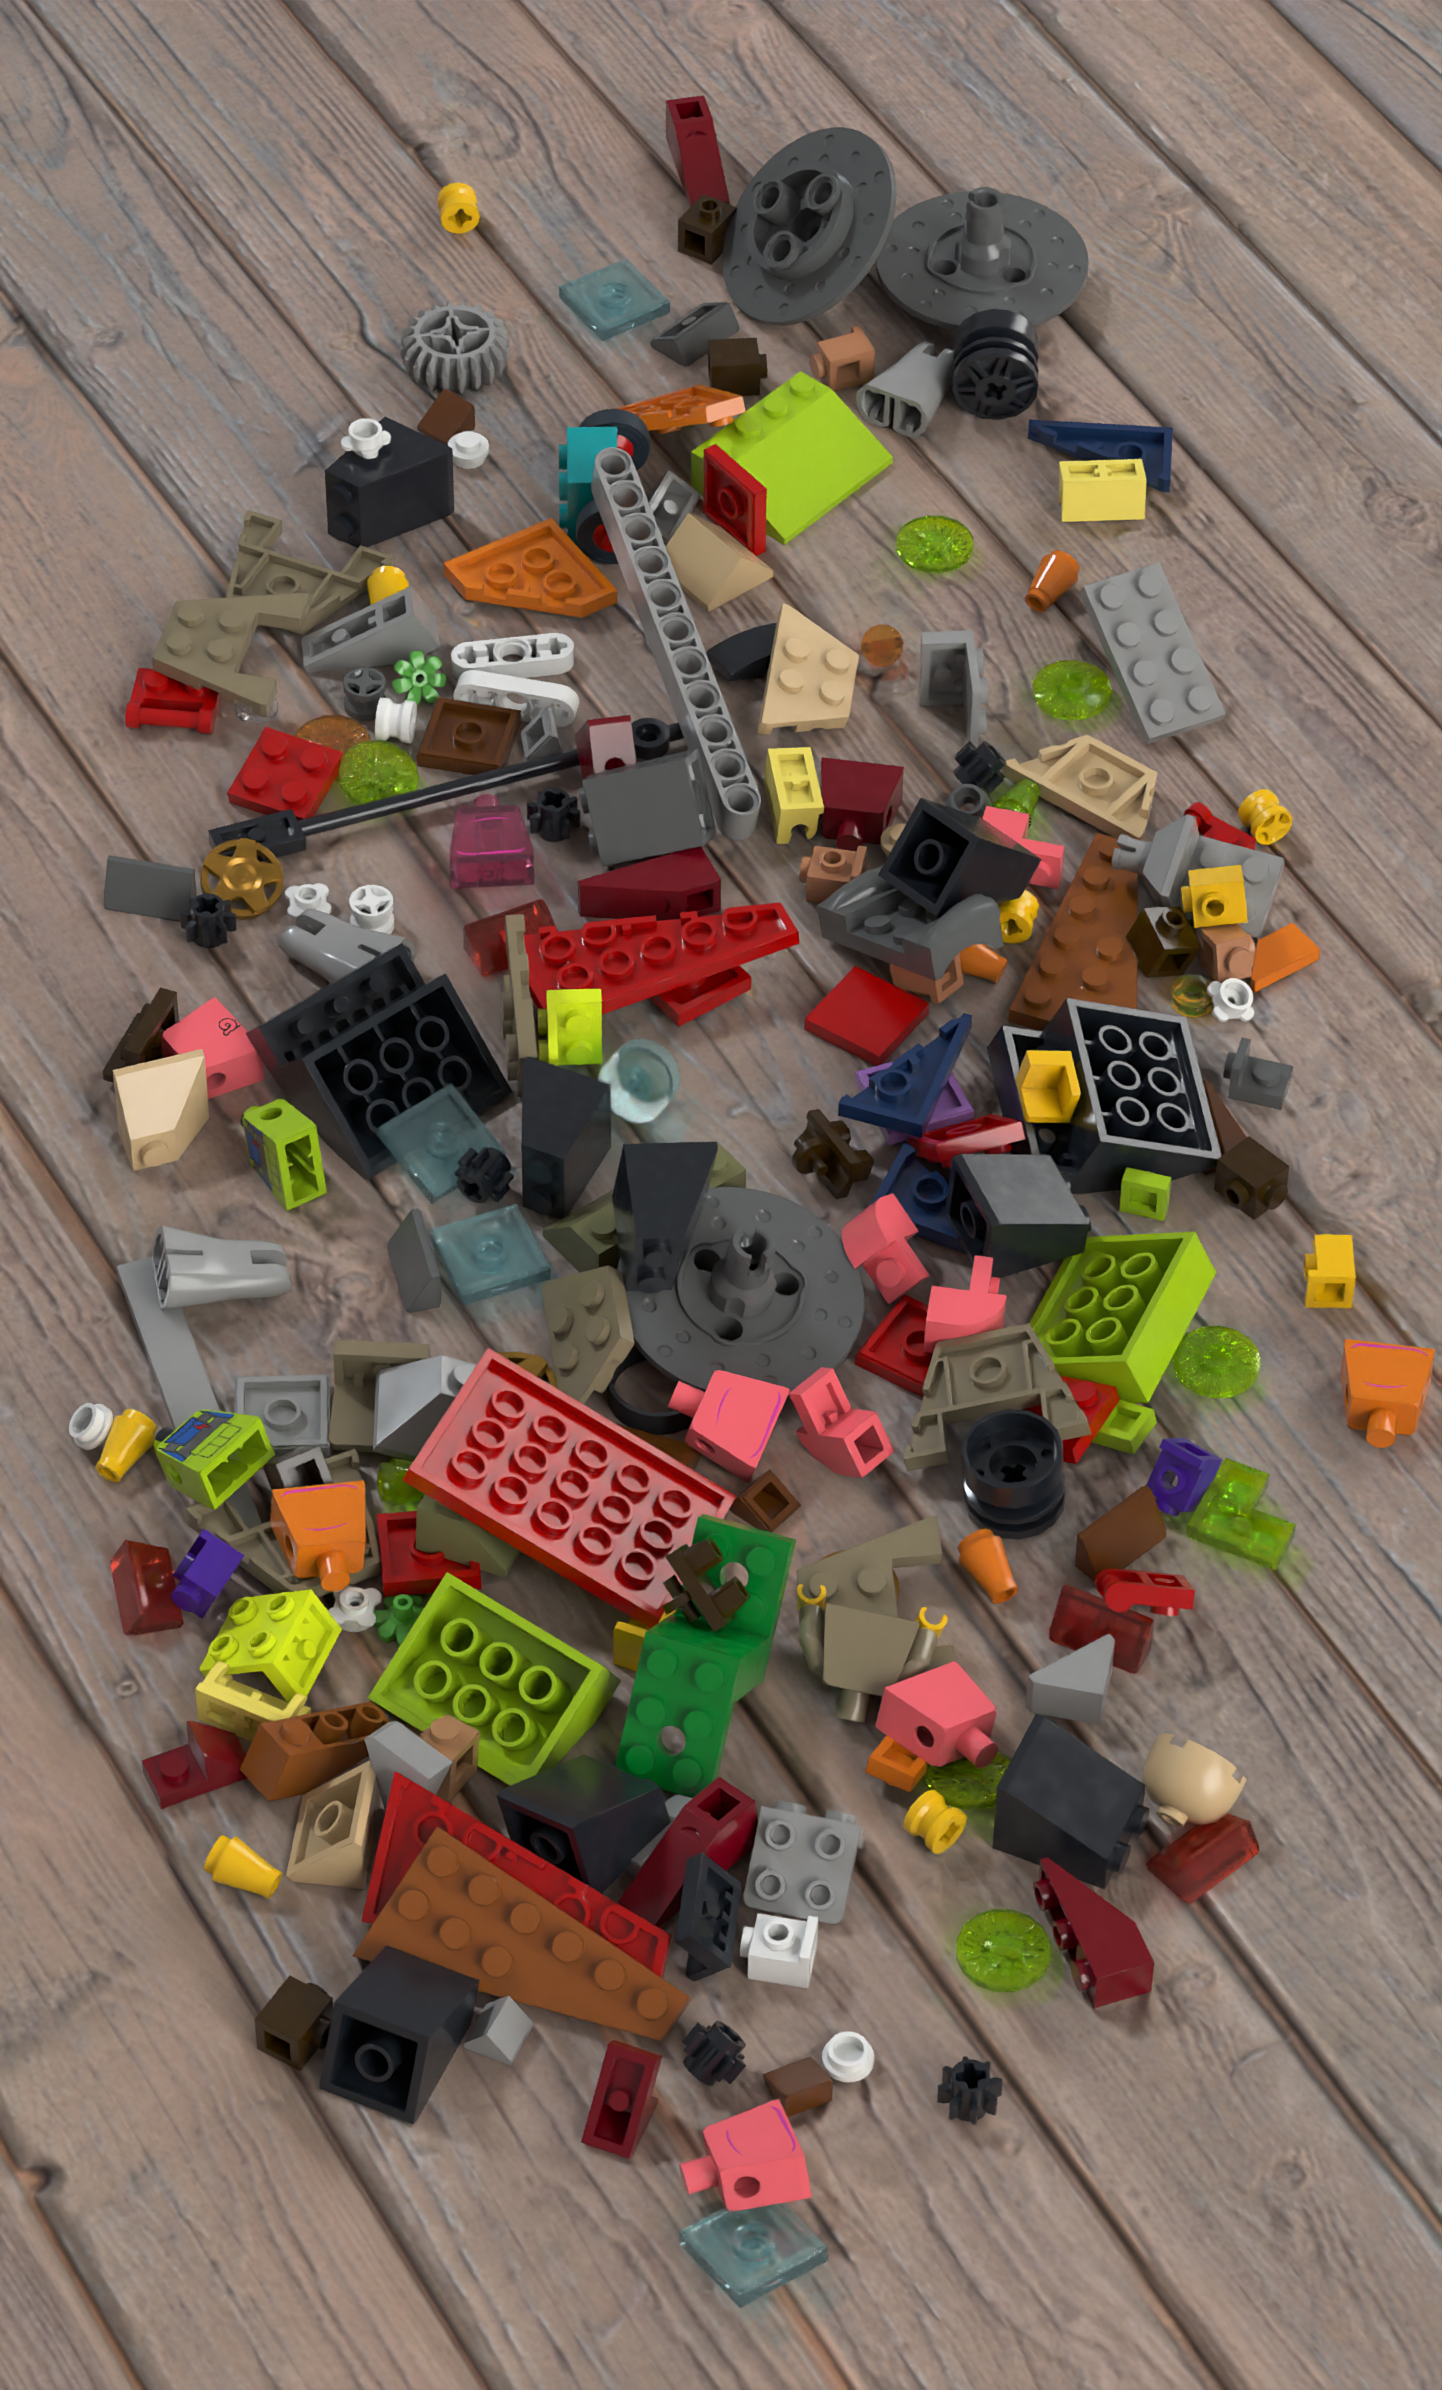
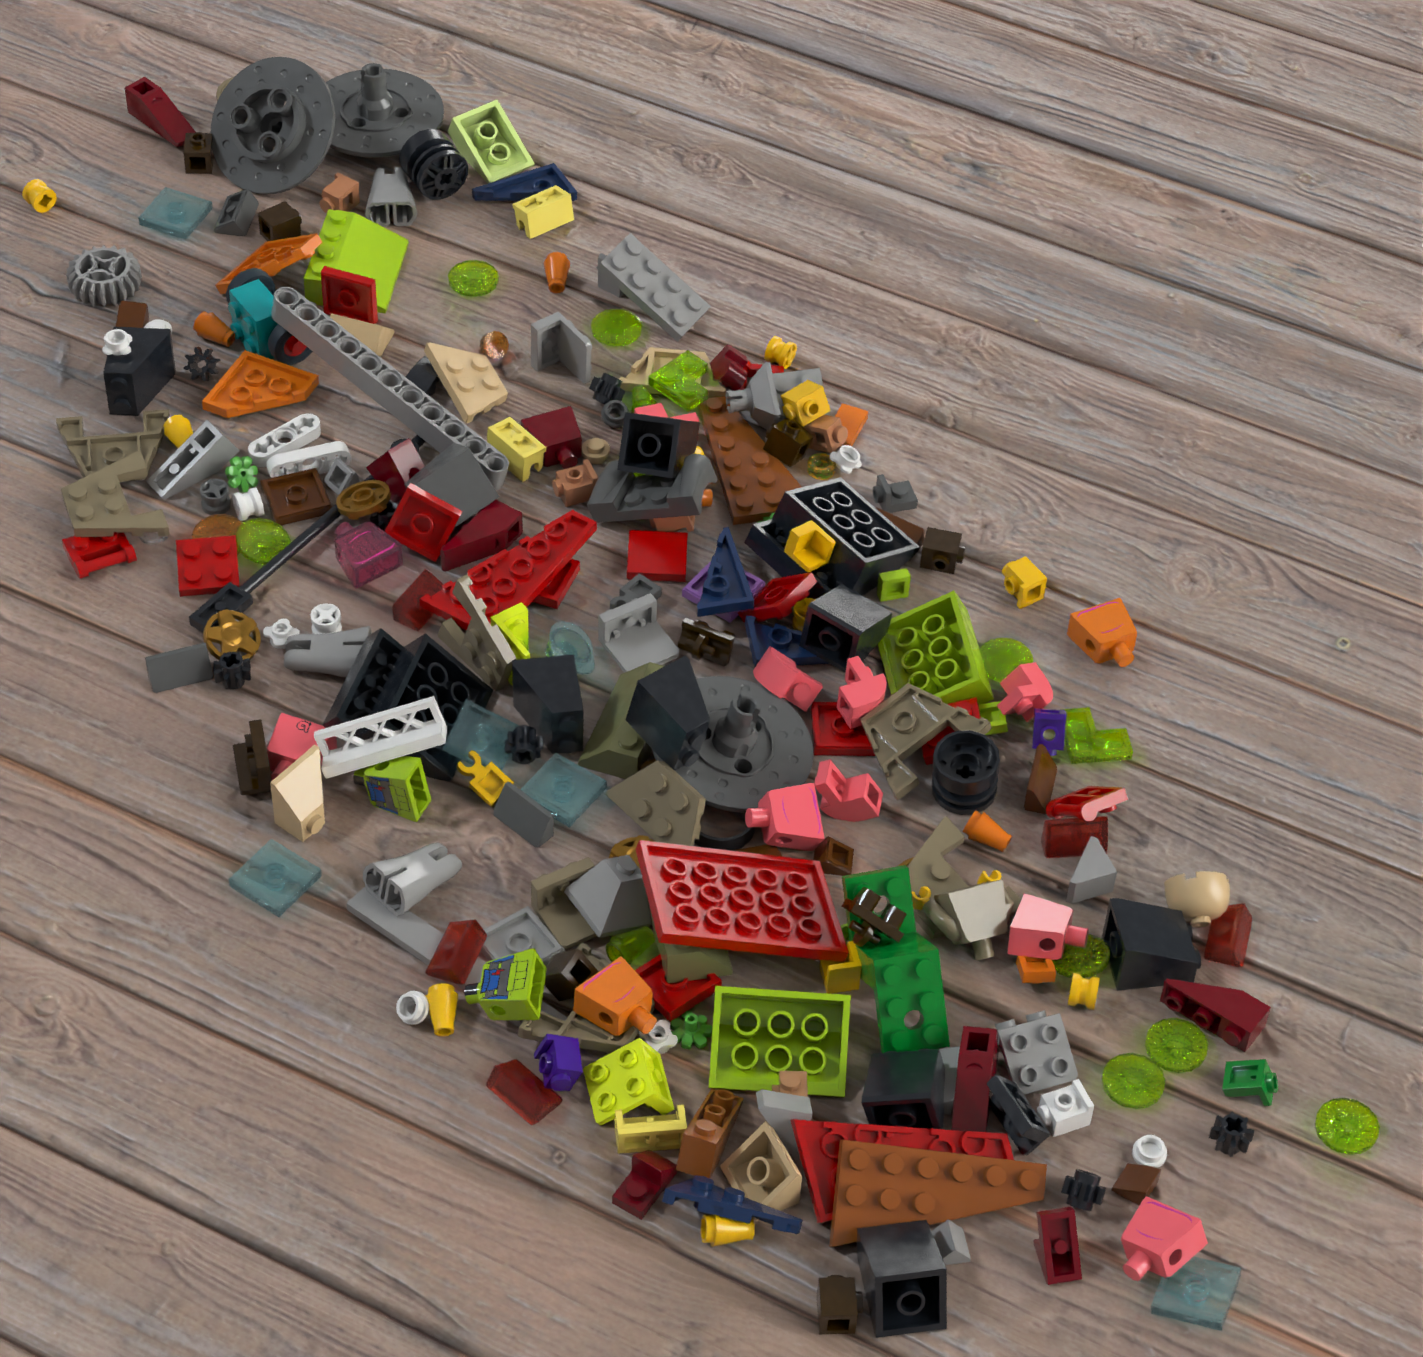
camera: 35 degrees left, 0 degrees up
(59, 1195) = (275, 877): none -> clear light blue plate
(195, 1386) = (457, 951): none -> clear red slope
(257, 1833) = (729, 1204): none -> dark blue wing
(286, 1092) = (383, 747): none -> white fence
(401, 1193) = (486, 781): none -> yellow plate
(482, 514) = (199, 356): none -> black gear
(533, 774) = (363, 499): none -> pearl gold wheel
(537, 473) = (214, 329): none -> orange cone
(577, 833) = (423, 522): none -> red plate
(744, 1103) = (634, 635): none -> light grey bracket
(792, 1052) = (636, 588): none -> dark grey plate
(906, 1963) = (1133, 1080): none -> clear neon green wheel
(1059, 2040) = (1250, 1079): none -> green bracket
(1080, 792) = (677, 380): none -> clear neon green plate
(1107, 365) = (489, 142): none -> yellowish green slope
(1140, 2164) = (1347, 1126): none -> clear neon green wheel
(1166, 804) = (728, 368): none -> dark red leg
(1198, 1408) = (1025, 690): none -> coral brick

